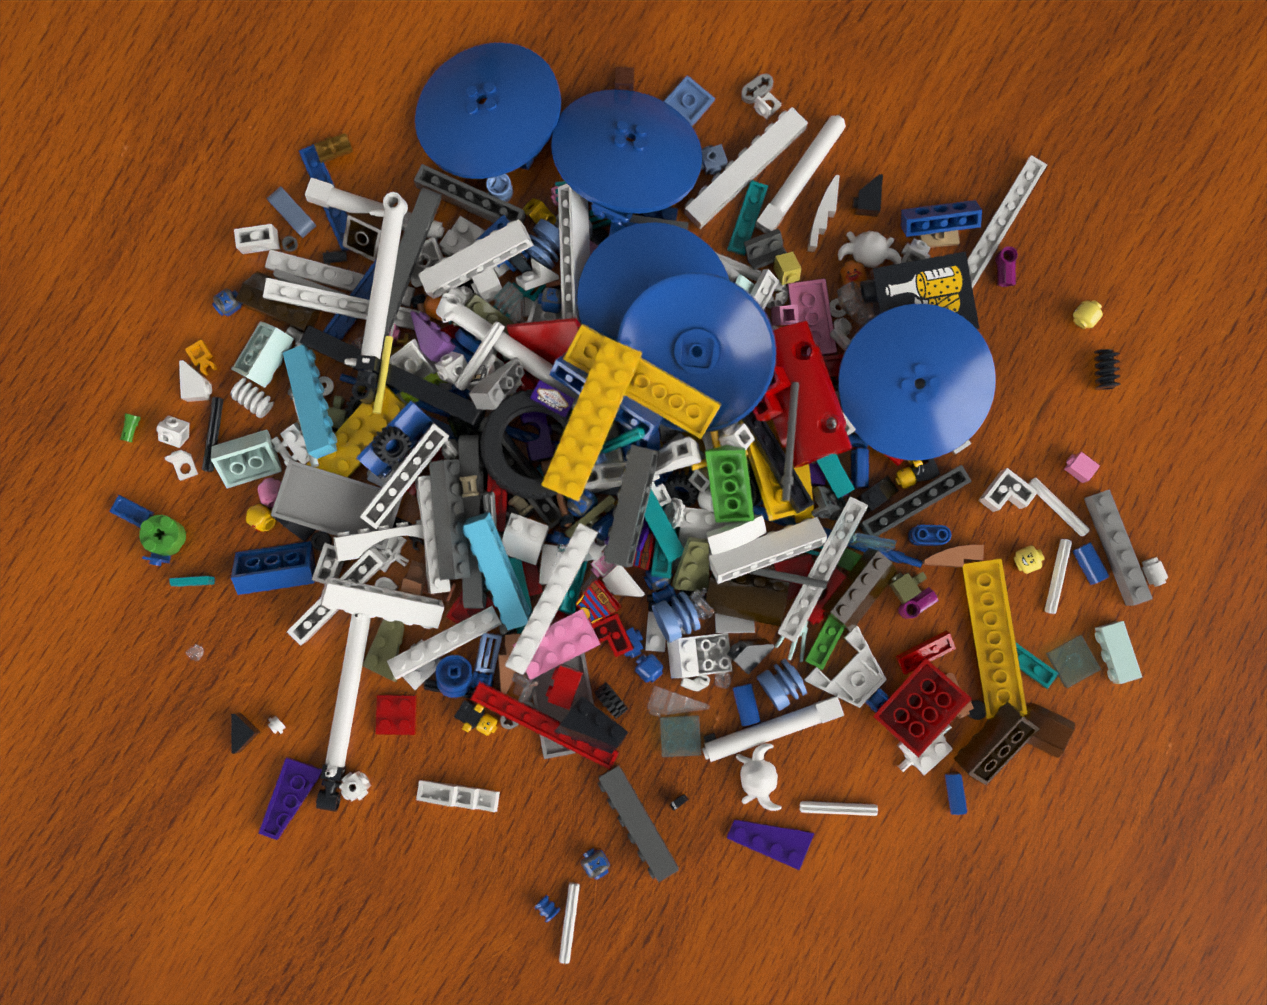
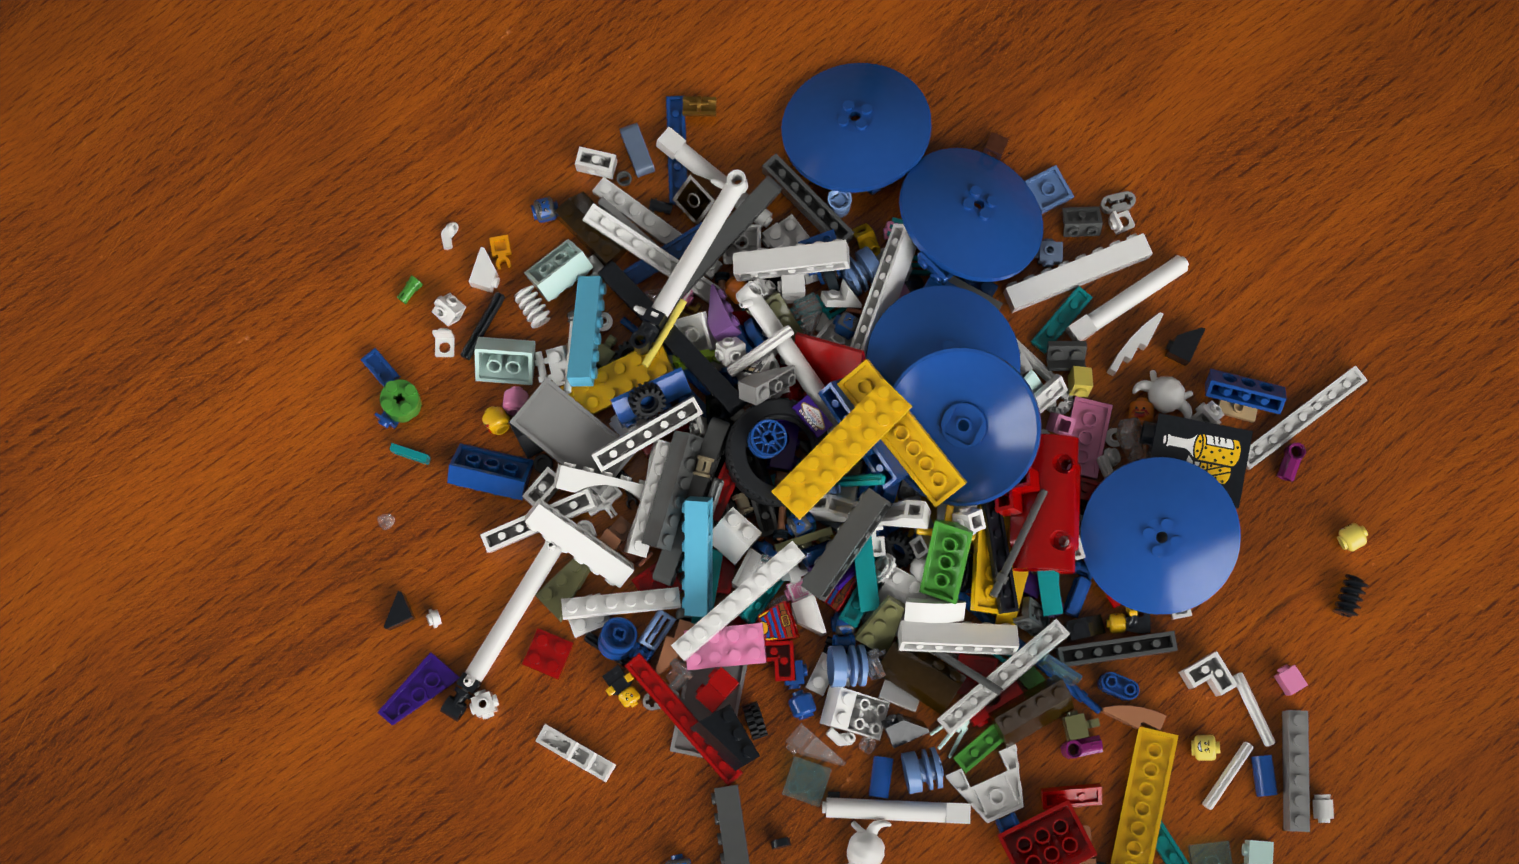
camera: 20 degrees right, 5 degrees down
(145, 360) = (447, 235): none -> white arm
(525, 430) = (776, 435): none -> blue wheel
(731, 119) = (1082, 221): none -> dark grey bracket

